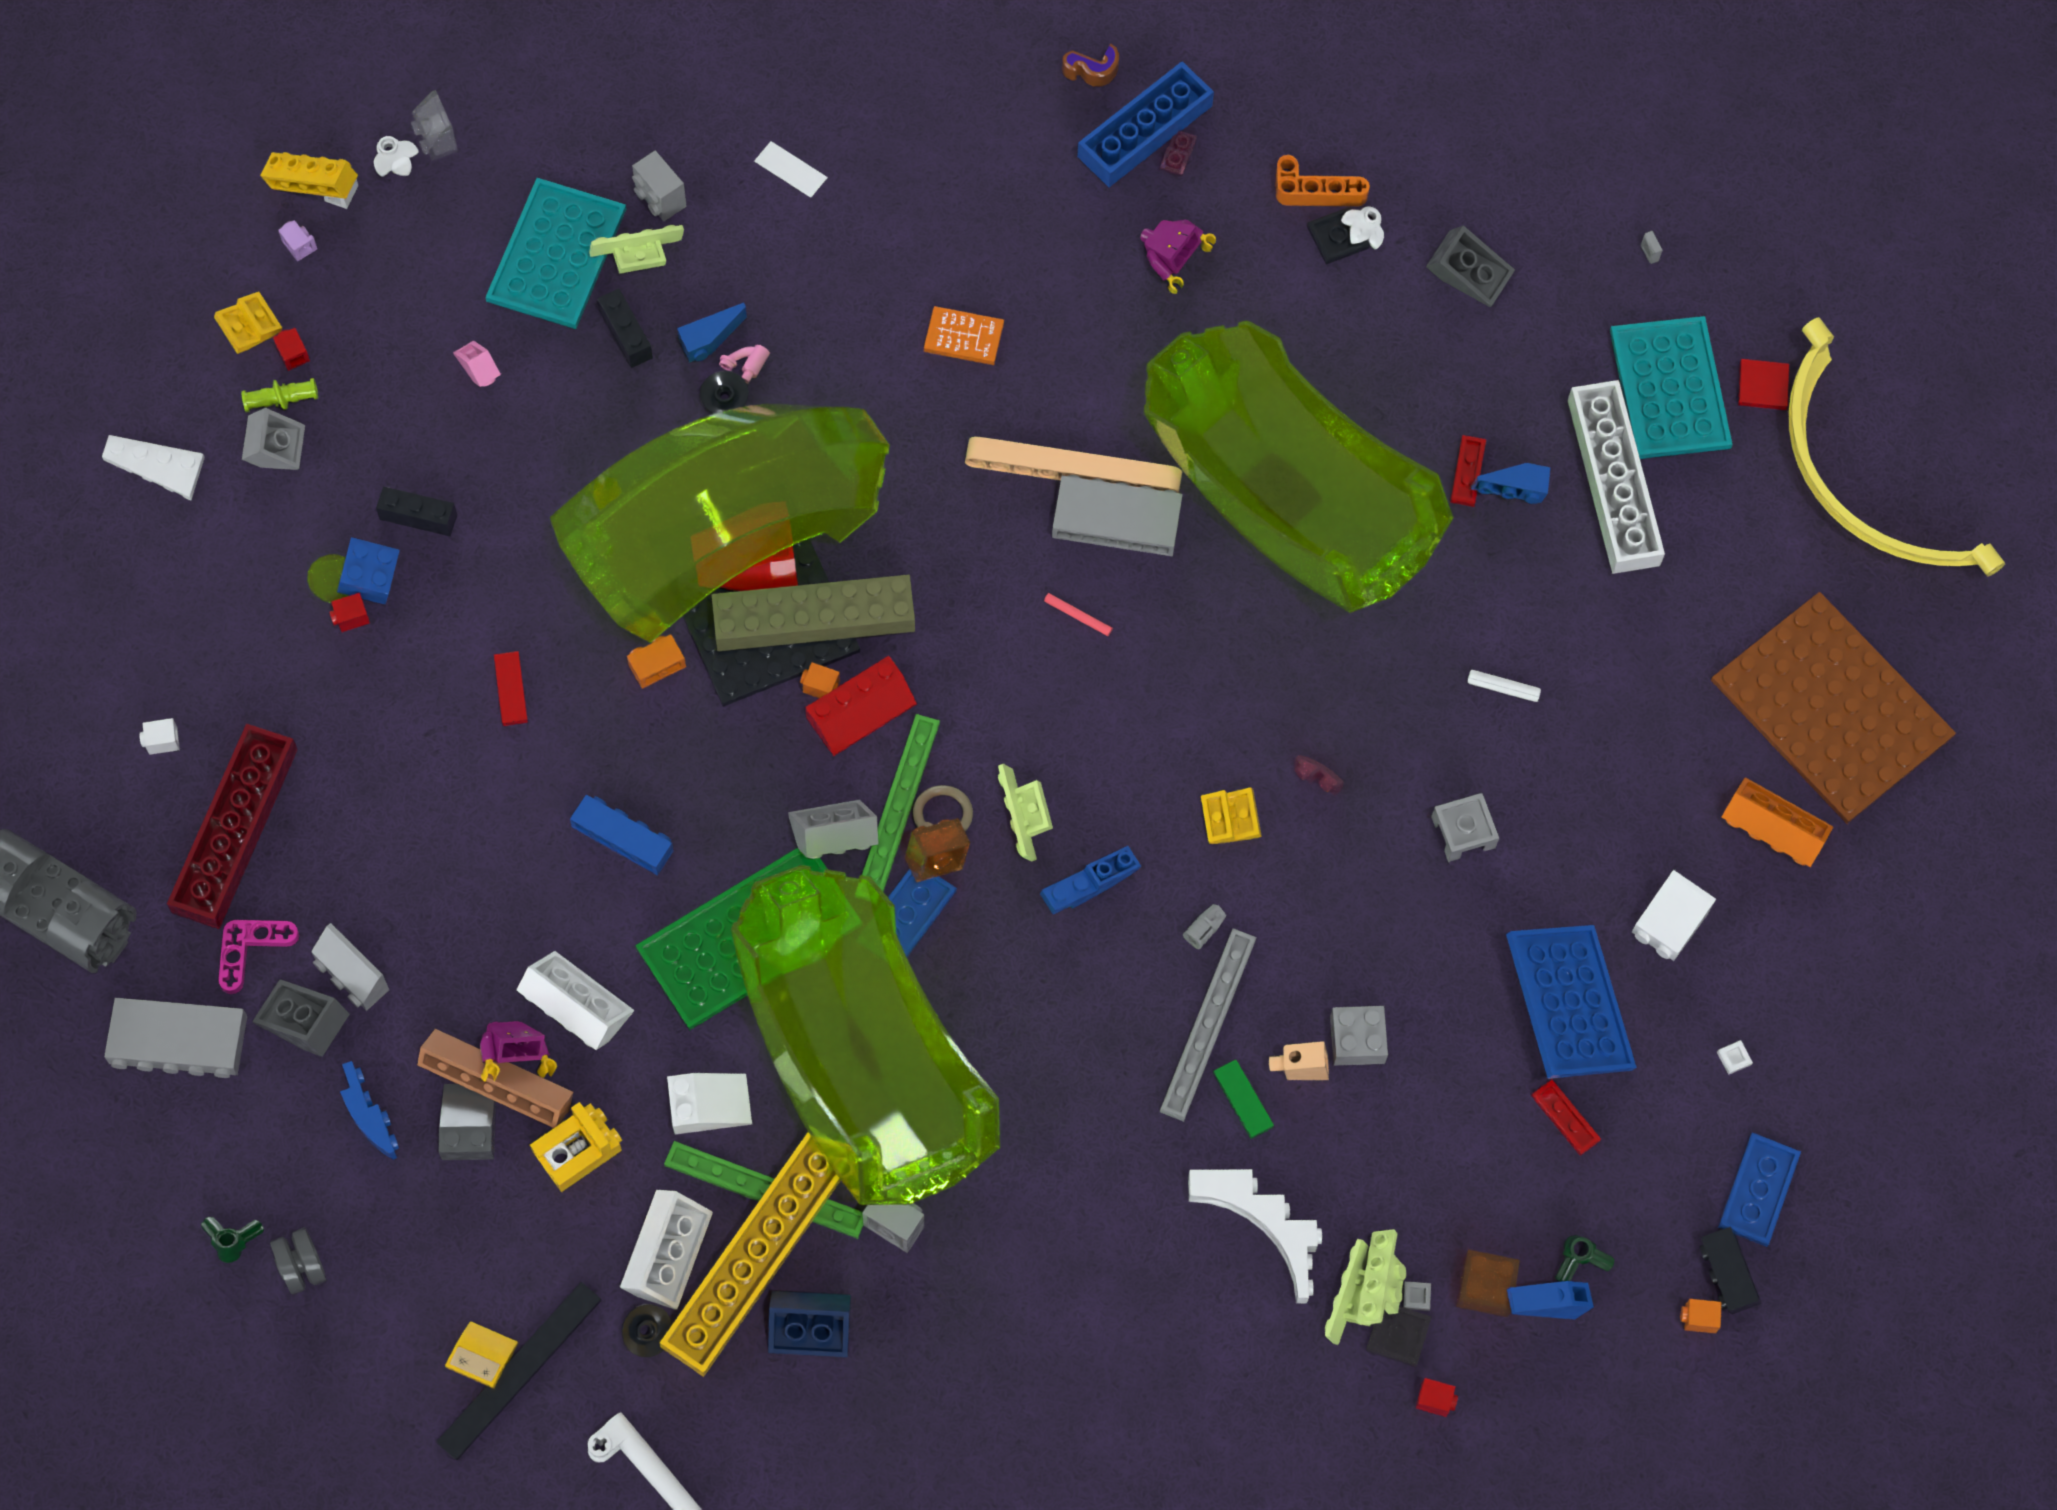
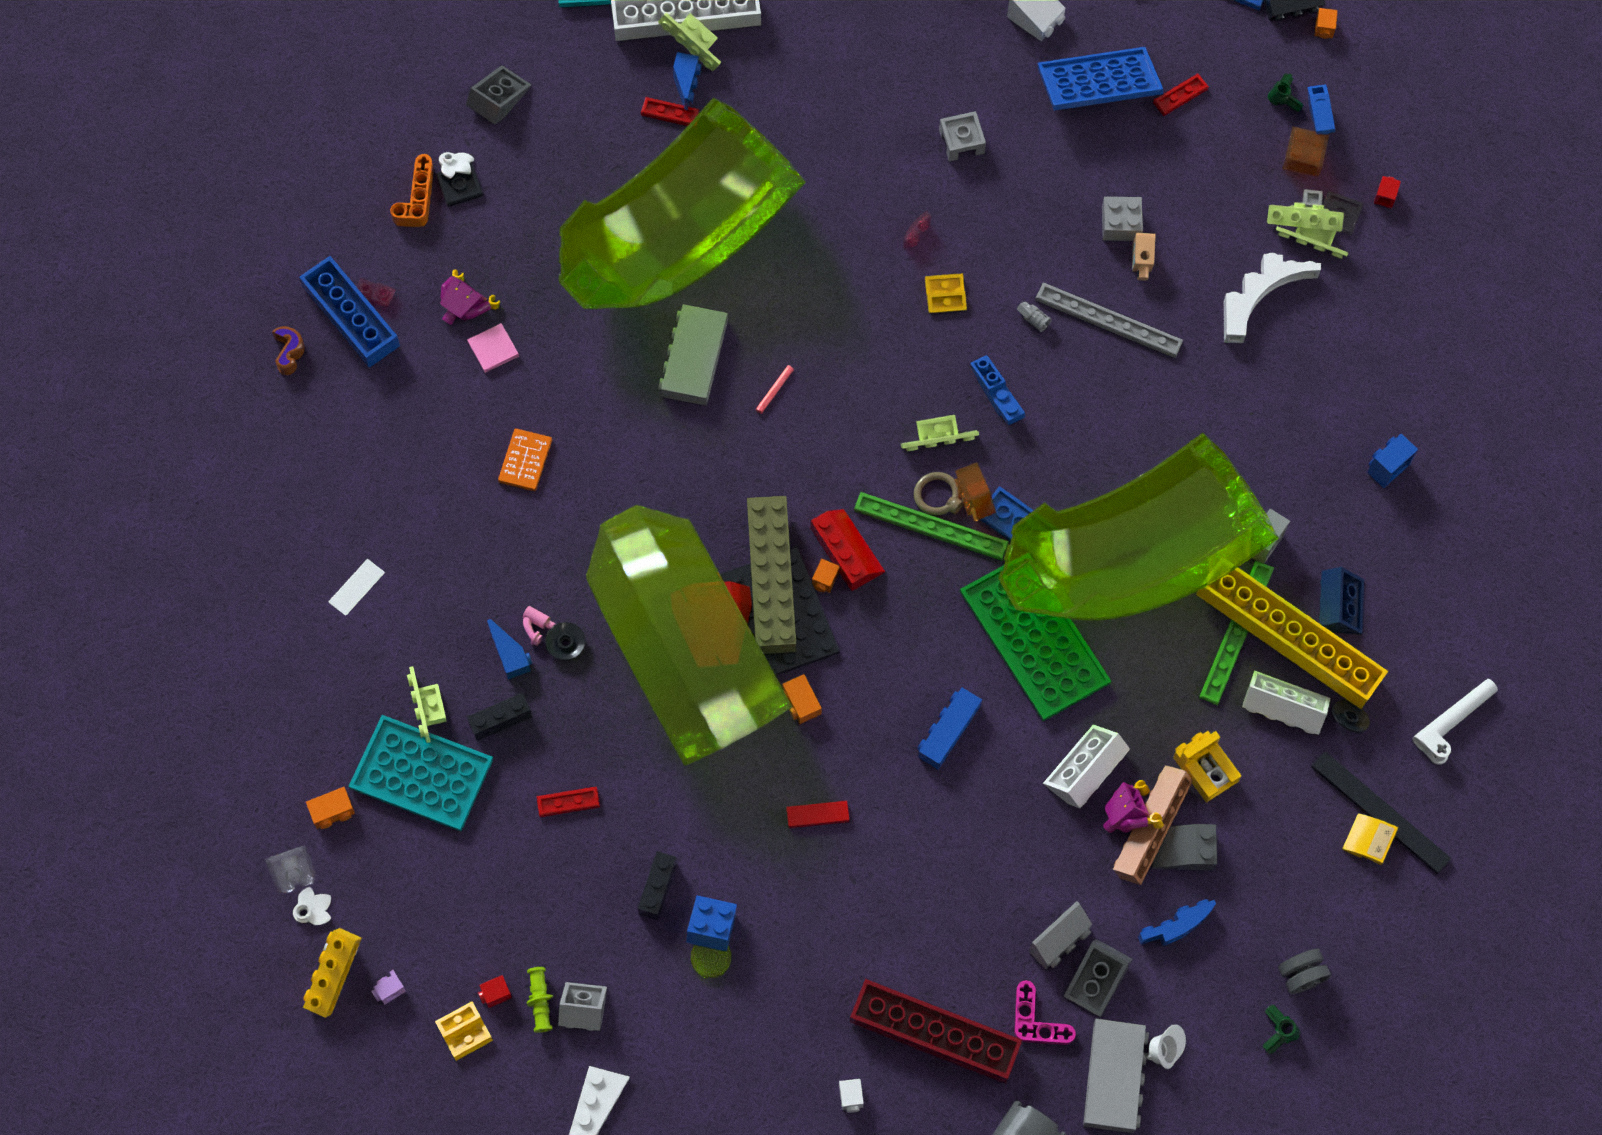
camera: 85 degrees left, 0 degrees up
(209, 1099) = (1167, 1047): none -> white piece
(349, 612) = (746, 940): red brick -> none
(477, 363) = (520, 837): bright pink slope -> none
(511, 162) = (330, 808): none -> orange brick
(524, 412) = (568, 801): none -> red tile
(658, 186) = (370, 684): light grey brick -> none
(708, 1101) = (1170, 670): white slope -> none
(834, 828) = (951, 568): light grey slope -> none
(1014, 1388) = (1391, 460): none -> blue brick
(1055, 463) = (648, 385): light nougat beam -> none
(1113, 289) = (493, 348): none -> bright pink tile
(1243, 1099) = (1167, 300): green tile -> none
(1504, 685) = (848, 103): white axle -> none
(1574, 485) = (693, 36): none -> yellowish green bracket

